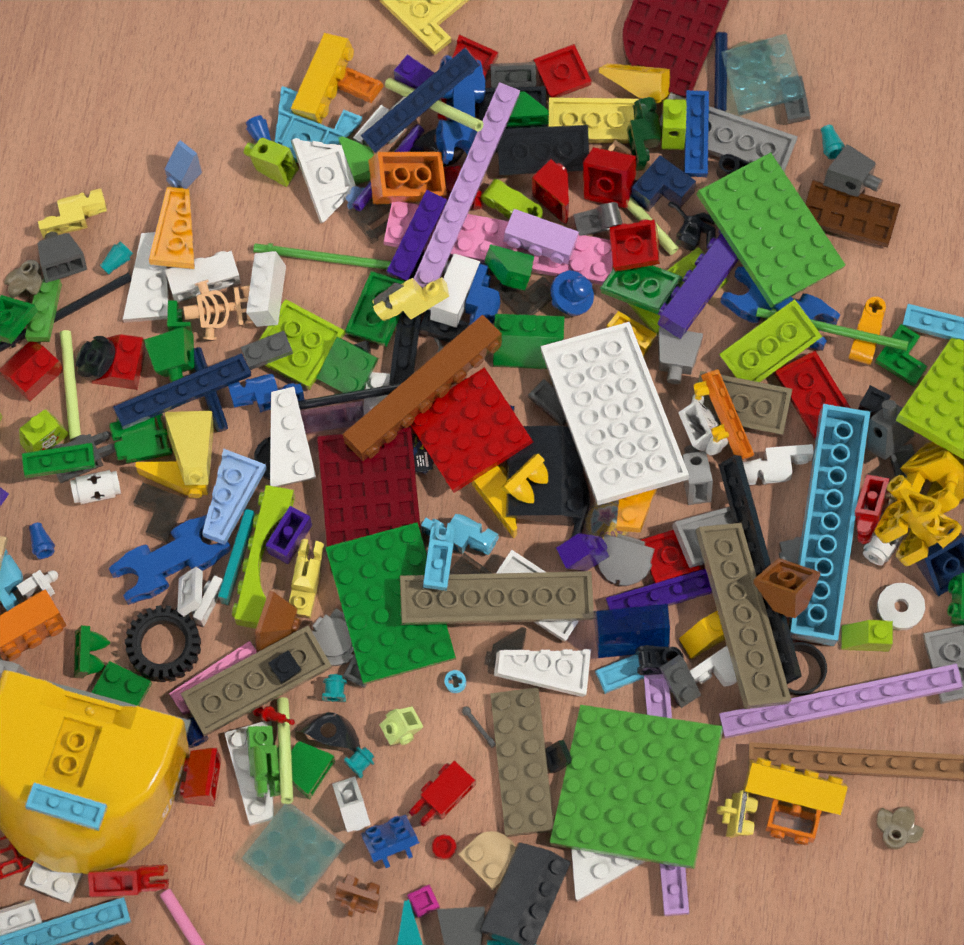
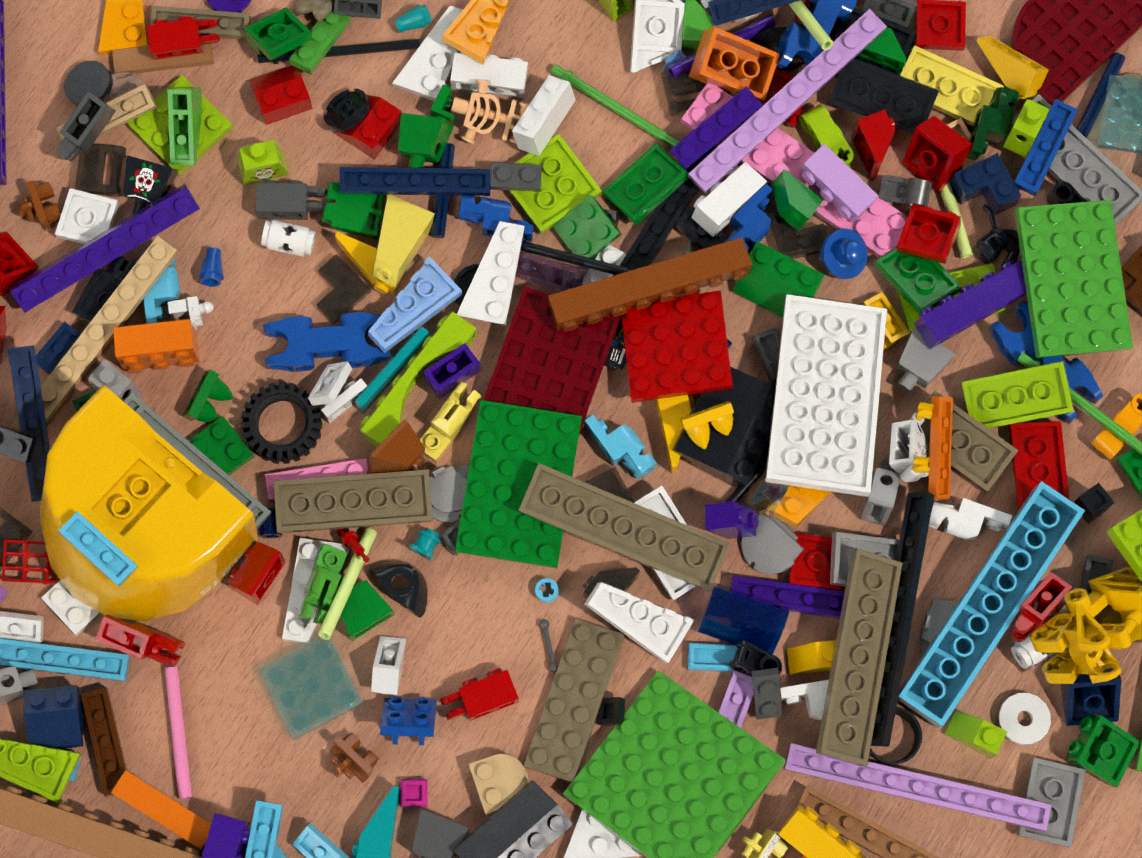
camera: 20 degrees right, 5 degrees up
(58, 460) = (263, 196): green plate -> none
(70, 384) = (312, 125): yellowish green piece -> none
(284, 667) = (385, 501): black plate -> none
(359, 761) = (417, 626): teal brick -> none
(396, 727) = (472, 610): yellowish green brick -> none
(409, 298) = (679, 188): light yellow plate -> none
(439, 557) = (584, 462): medium azure plate -> none
(444, 847) = (459, 749): red tile -> none
(787, 586) = (916, 649): dark orange slope -> none
(885, 432) = (1090, 538): dark grey torso -> none

